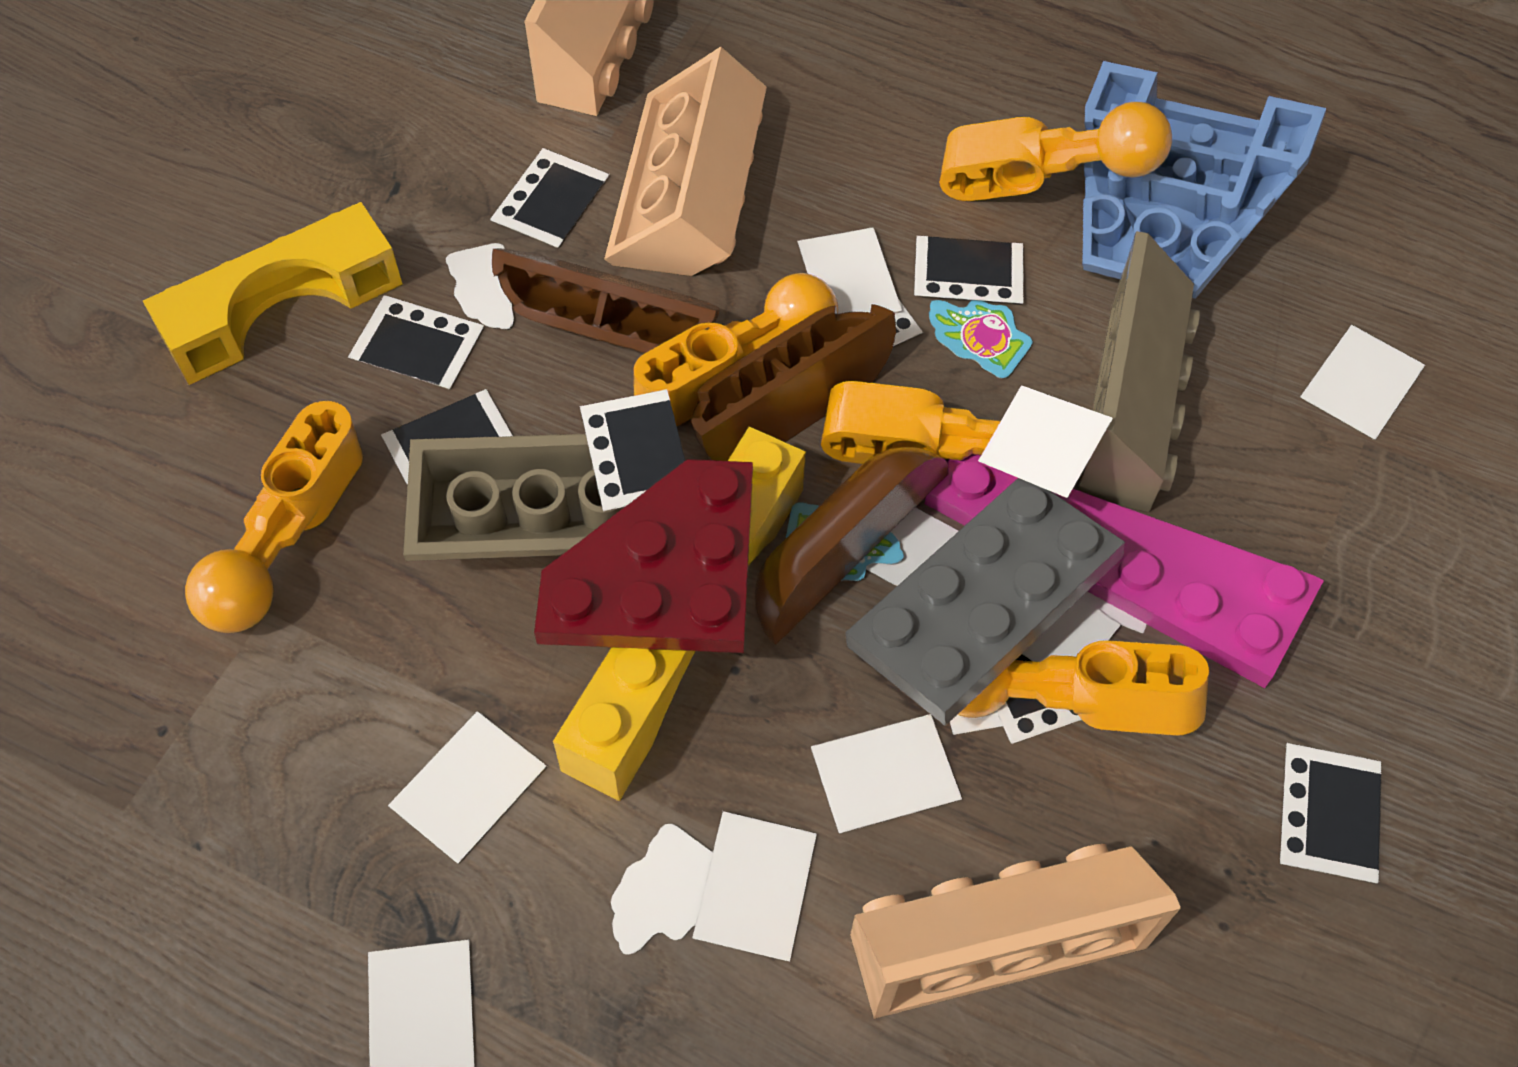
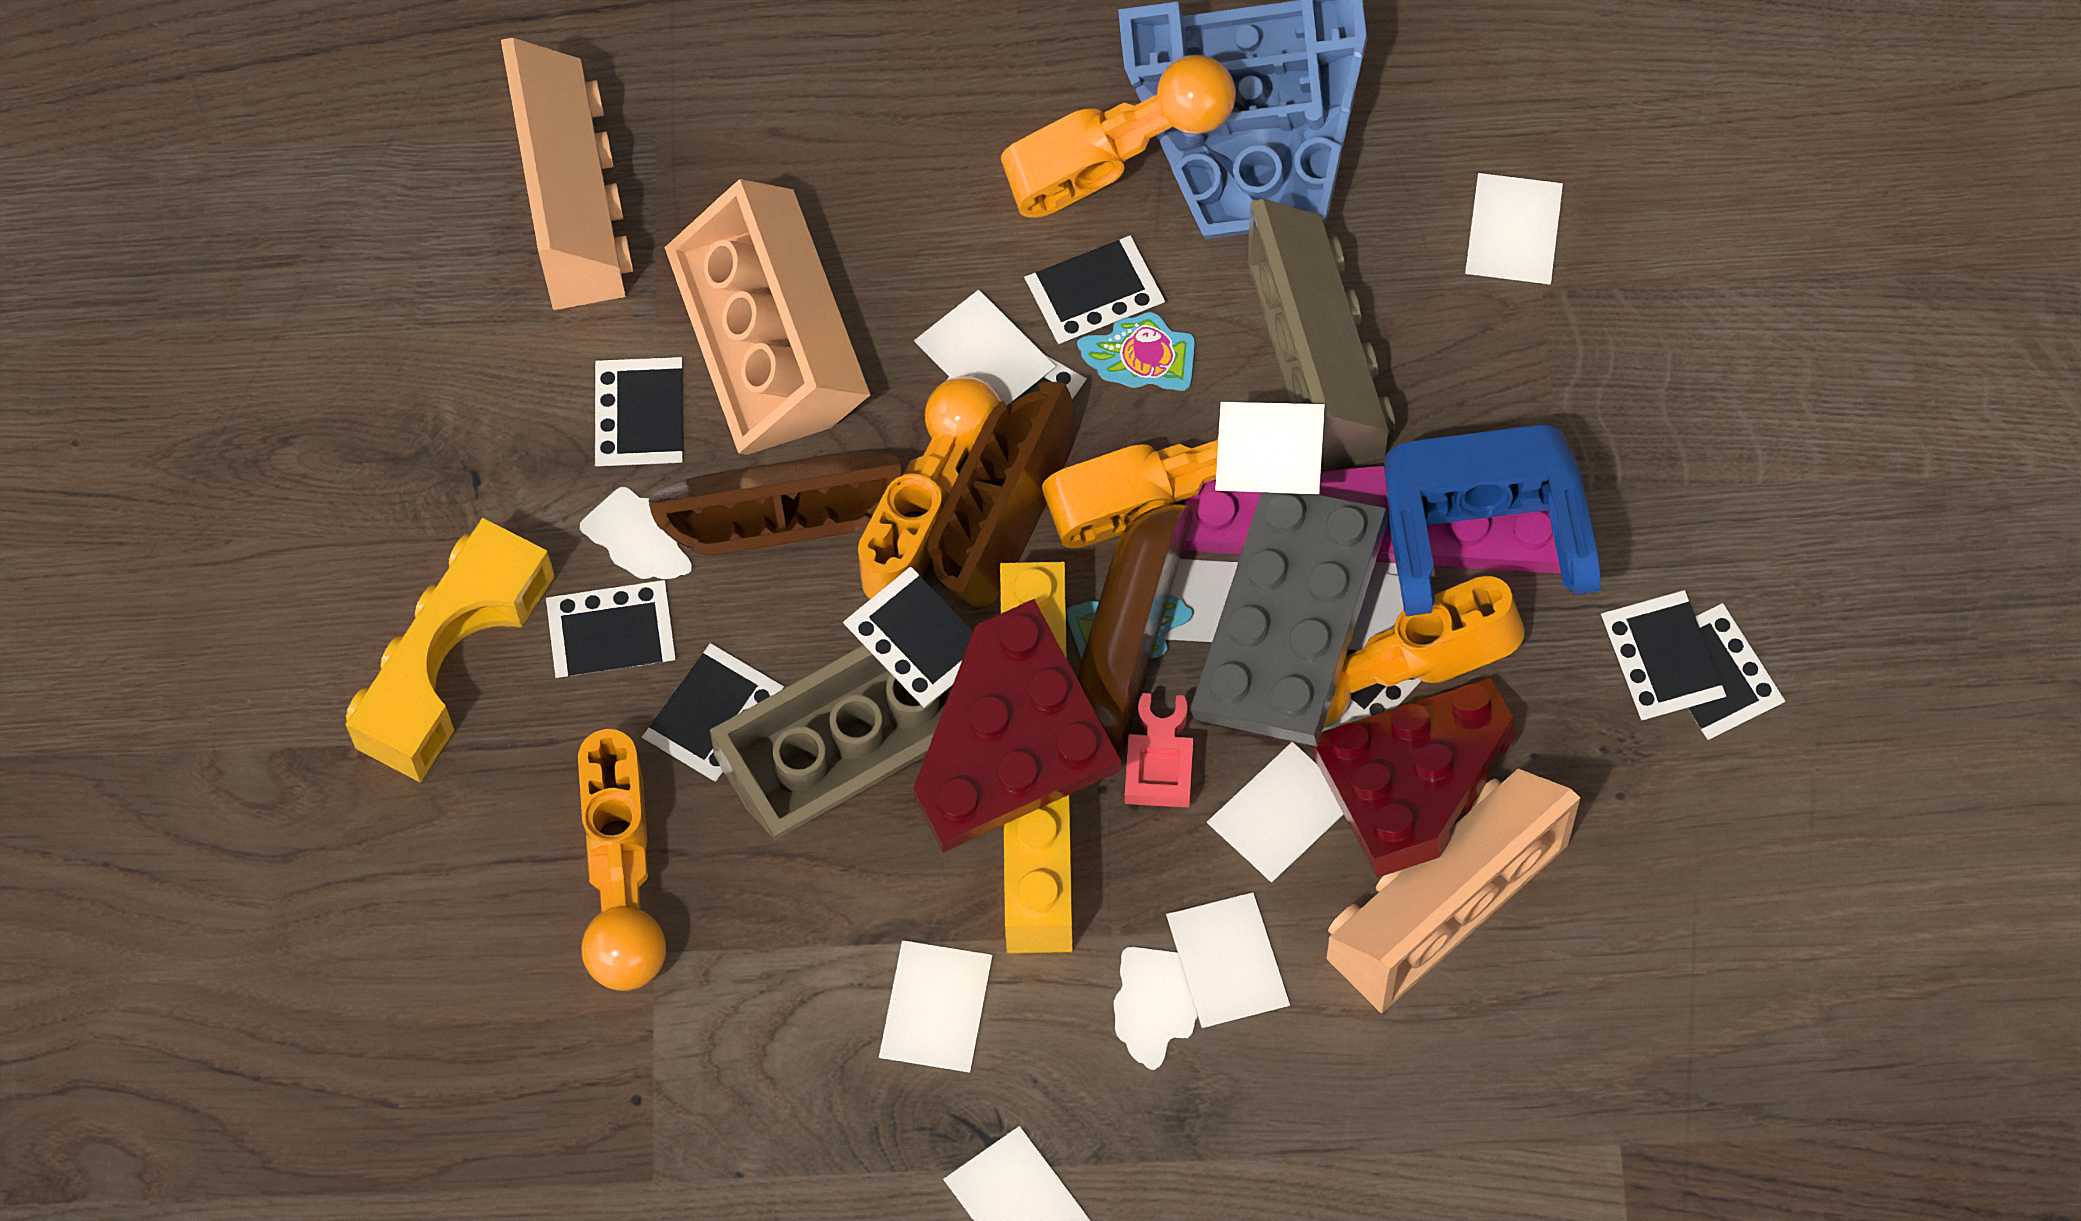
camera: 25 degrees left, 5 degrees up
(796, 670) = (1159, 762): none -> coral plate
(1028, 798) = (1414, 771): none -> dark red plate
(1236, 563) = (1481, 479): none -> blue connector
(1404, 874) = (1742, 676): none -> sticker

